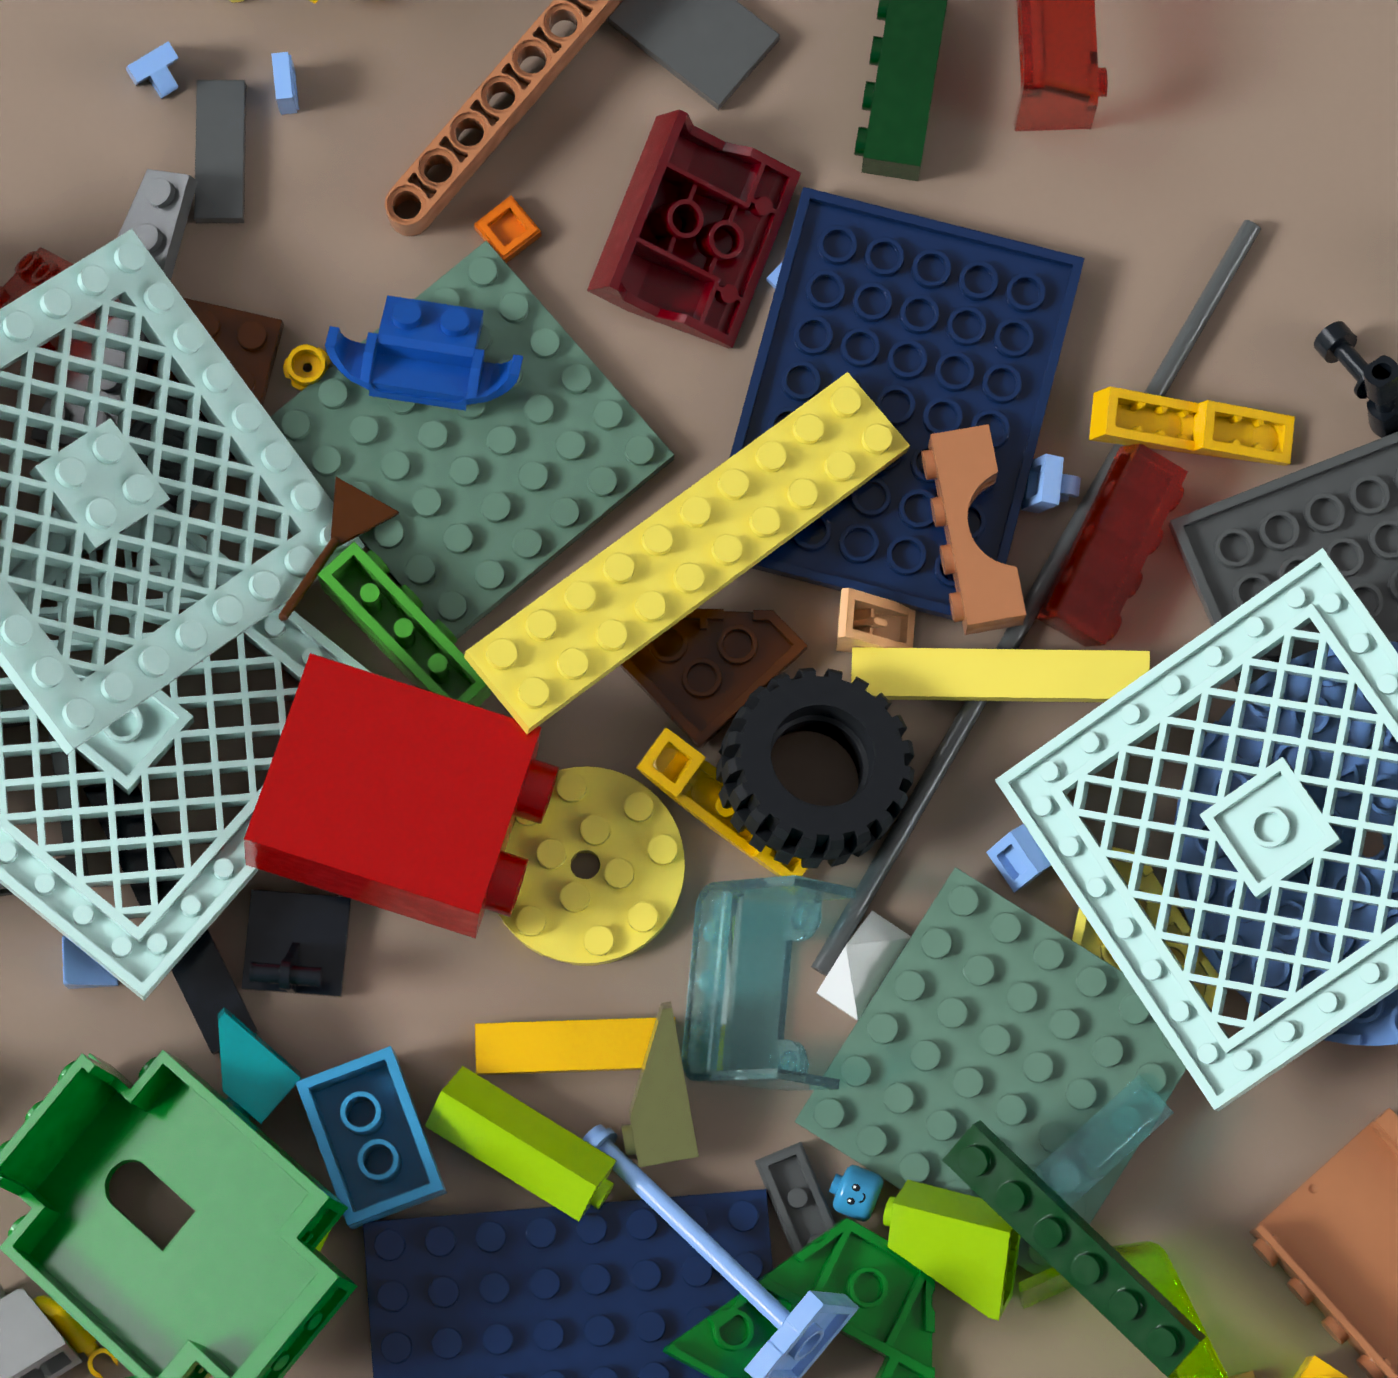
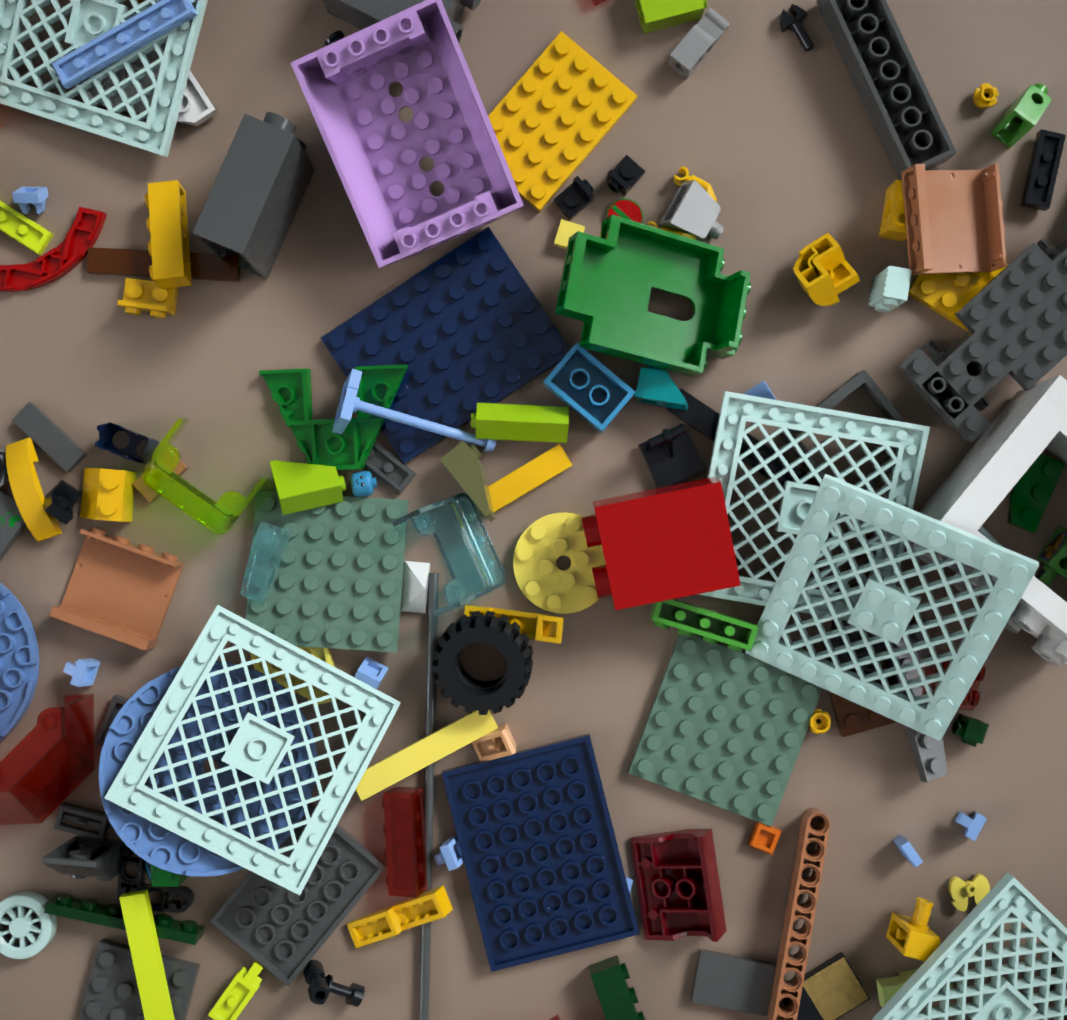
camera: 150 degrees right, 10 degrees up
(66, 218) = (970, 729): none -> dark green plate
(220, 151) = (918, 801): dark grey tile -> none
(352, 515) = (758, 663): reddish brown piece -> none
(424, 356) = (768, 755): blue plate -> none
(686, 553) = (595, 729): light yellow plate -> none
(711, 666) = (562, 684): reddish brown plate -> none
(986, 590) = (451, 788): nougat arch -> none
(1074, 1248) = (246, 507): dark green plate -> none

